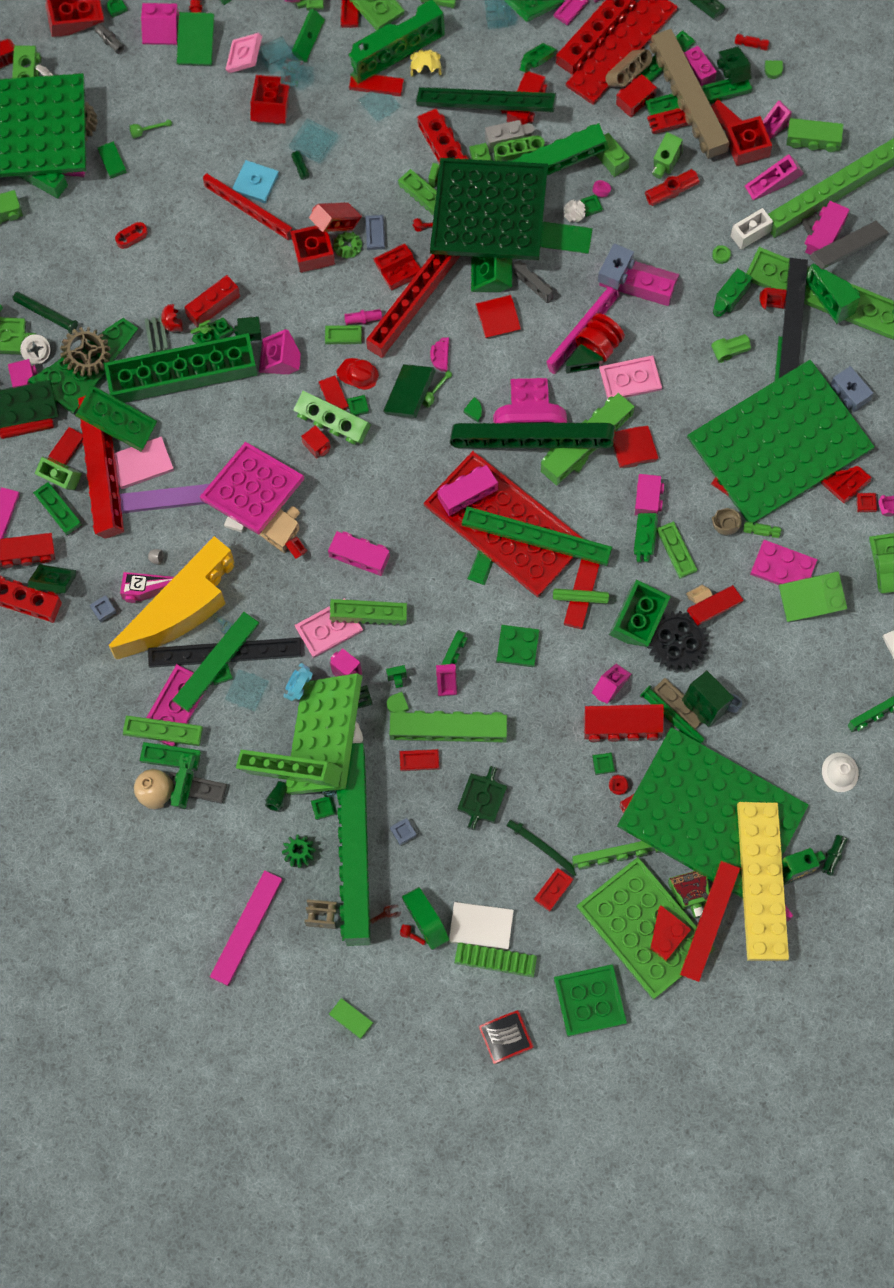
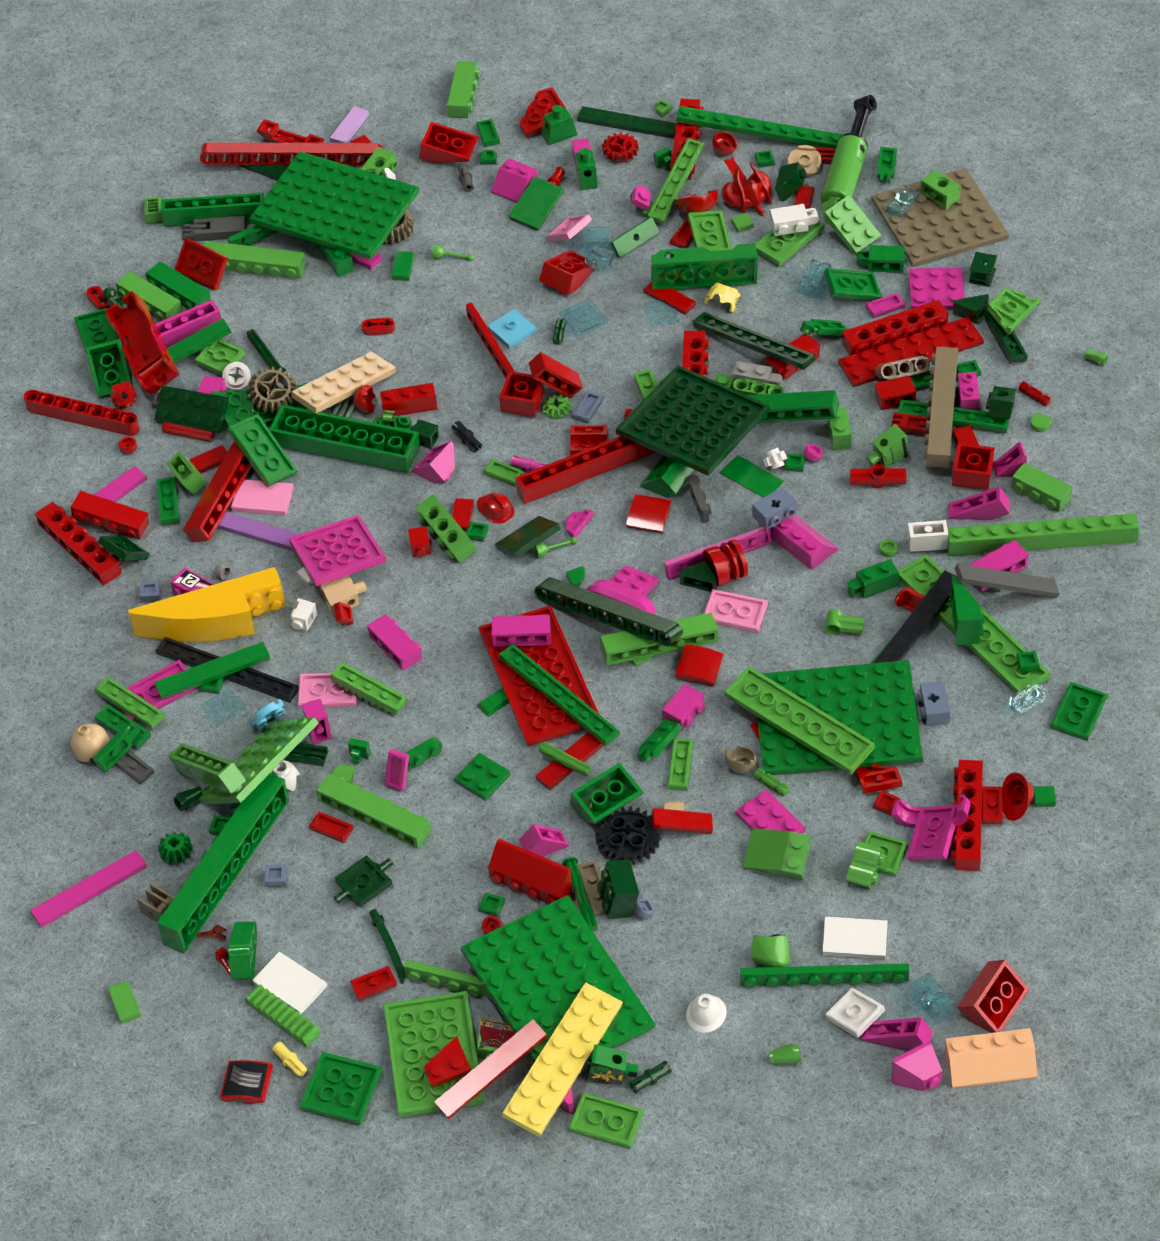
camera: 30 degrees right, 20 degrees down
(142, 311) = (343, 382): none -> tan plate
(259, 566) = (303, 615): none -> white brick
(287, 313) = (466, 436): none -> black pin
(529, 997) = (289, 1059): none -> light yellow axle
(757, 462) = (800, 720): none -> bright green plate
(822, 912) = (606, 1120): none -> bright green tile
(864, 690) = (770, 951): none -> bright green piece

